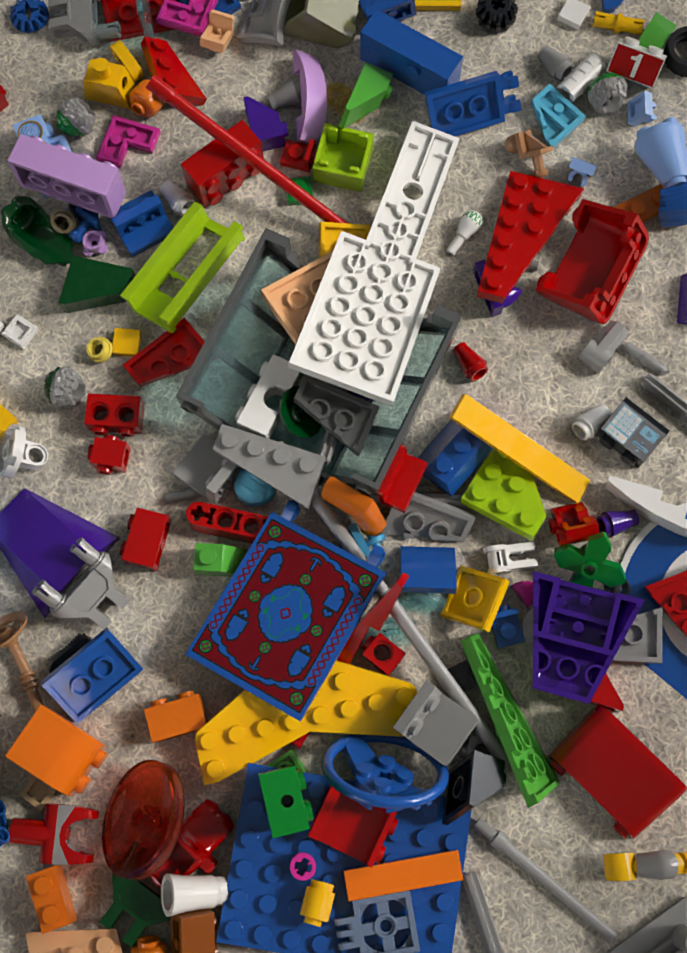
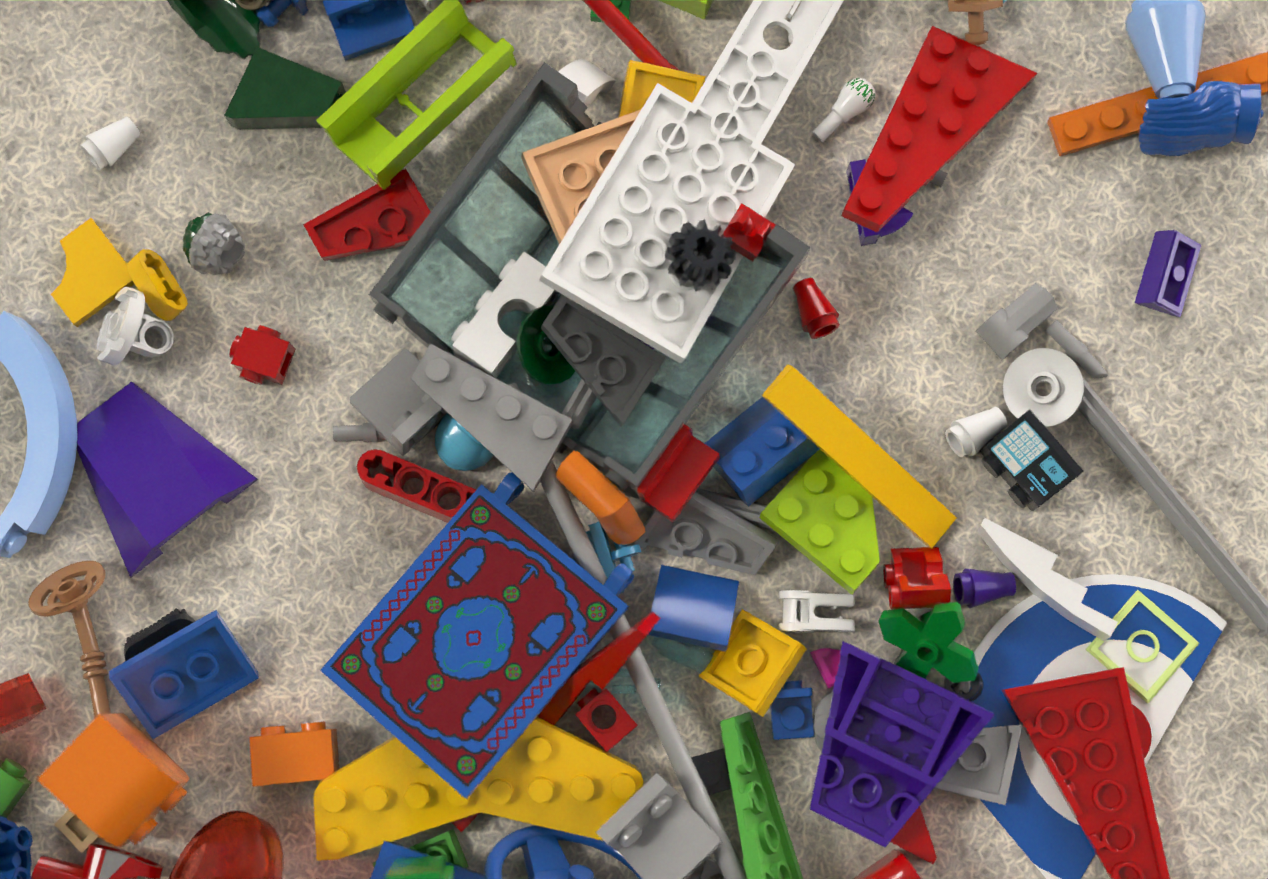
camera: 10 degrees right, 5 degrees up
(20, 331) = (162, 146): white tile -> none
(32, 420) = (157, 284): none -> yellow beam
(87, 591) = (196, 552): light grey connector -> none
(91, 237) = (290, 20): lavender plate -> none
(95, 345) = (265, 190): light yellow plate -> none
(116, 408) = (283, 288): red brick -> none
(126, 342) = (315, 189): yellow tile -> none
(145, 539) = (293, 489): red brick -> none
(217, 559) = (392, 538): bright green slope -> none
(297, 241) = (588, 78): none -> white slope
(391, 332) = (705, 242): none -> black gear
(418, 314) = (748, 232): none -> red tile
(581, 167) = (1040, 40): light blue tile -> none
(597, 261) = (1031, 192): red windscreen -> none
(630, 372) = (1038, 367): none -> white dish

